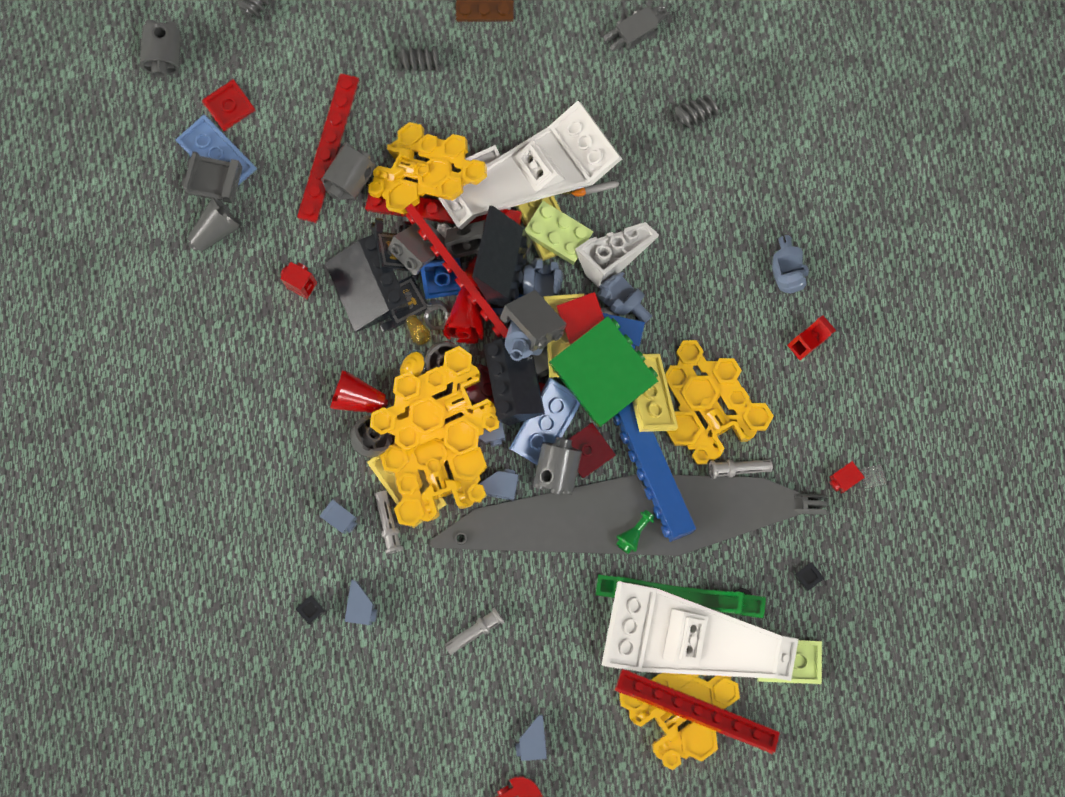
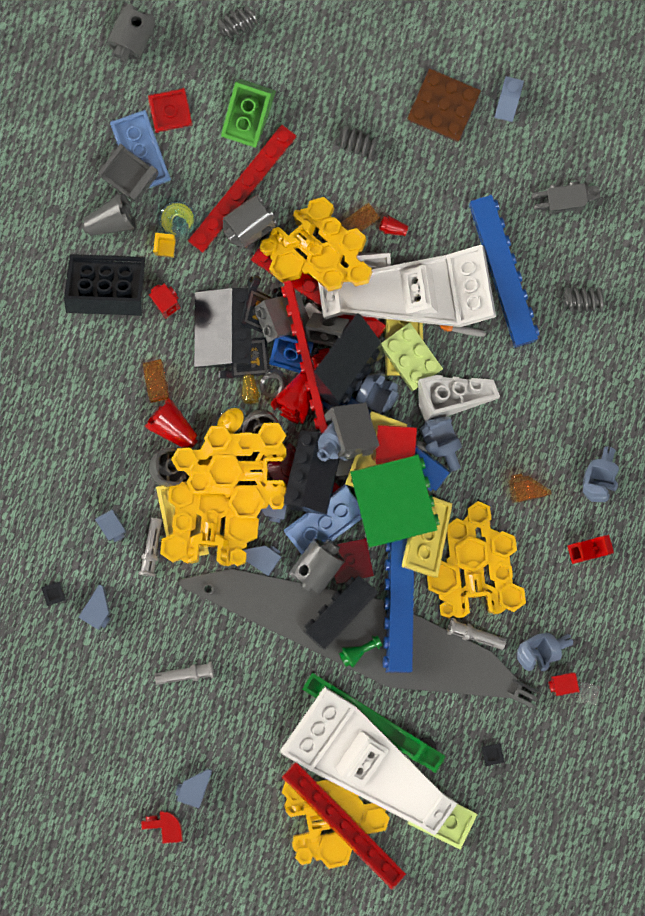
camera: 20 degrees right, 5 degrees up
(235, 292) = (105, 285): none -> black slope
(276, 229) = (164, 245): none -> yellow panel
(278, 201) = (178, 214): none -> clear light blue piece
(303, 76) = (247, 112): none -> bright green slope
(322, 360) = (155, 380): none -> clear orange slope
(455, 124) = (361, 219): none -> clear orange plate
(486, 121) = (392, 226): none -> red cone
(600, 502) = (340, 611): none -> black slope
(610, 118) = (503, 271): none -> blue brick
(723, 308) = (526, 489): none -> clear orange slope
(816, 452) = (548, 650): none -> sand blue piece

